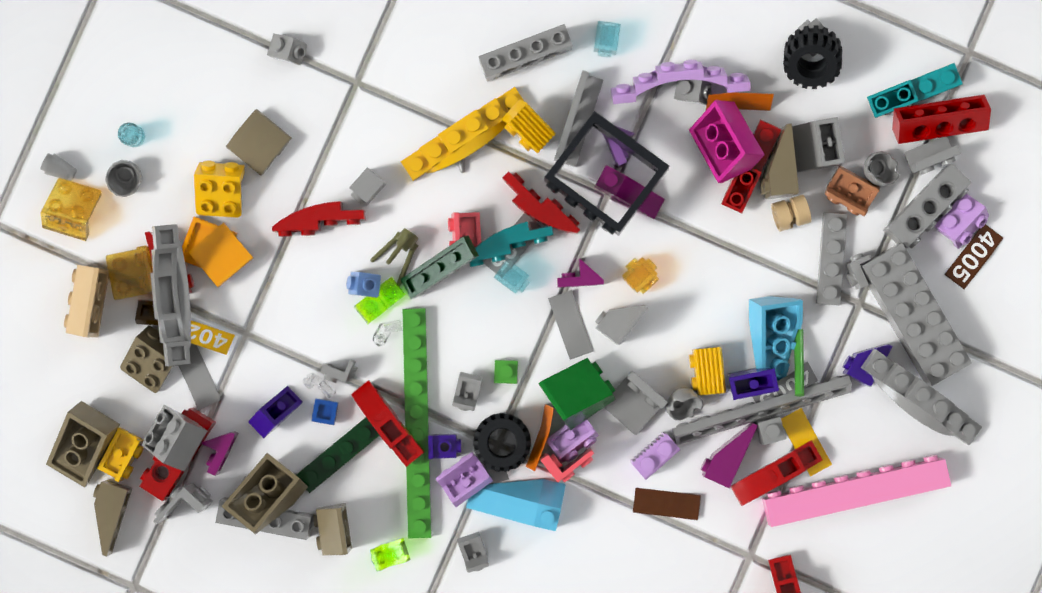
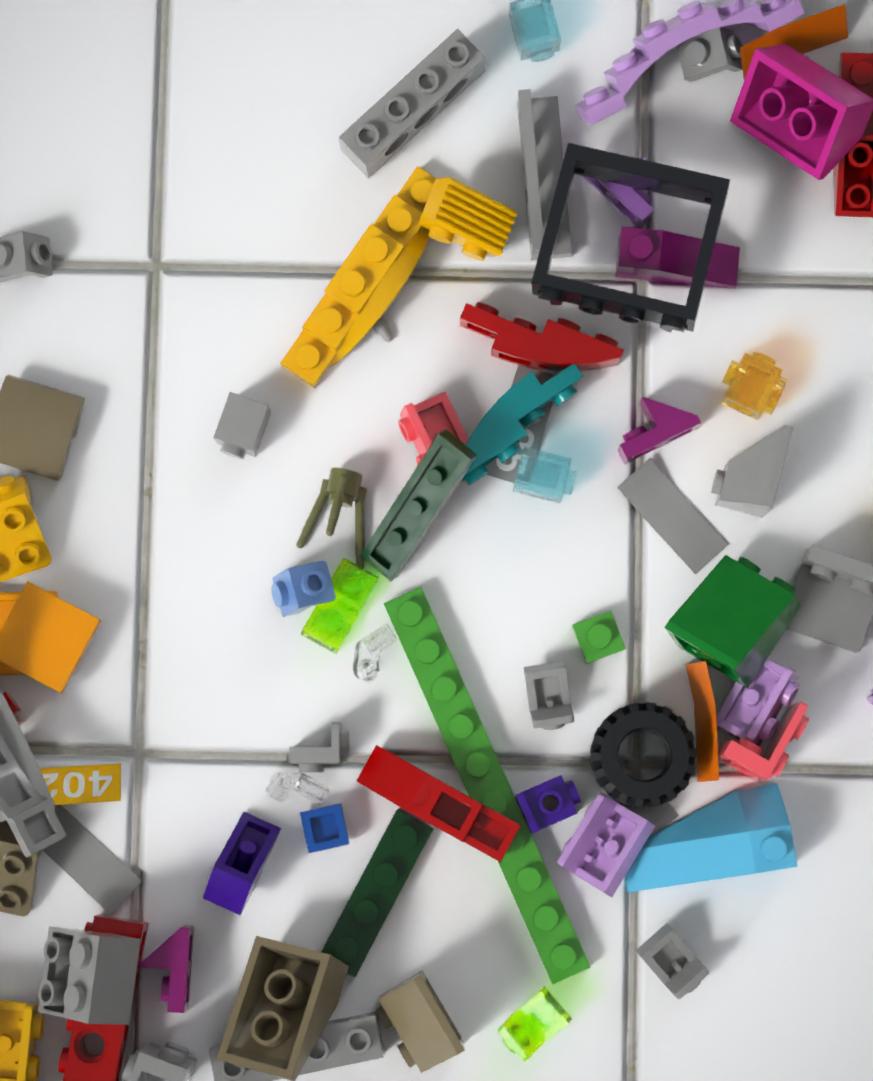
camera: 15 degrees left, 5 degrees down
(310, 218) = (167, 517): red slope -> none

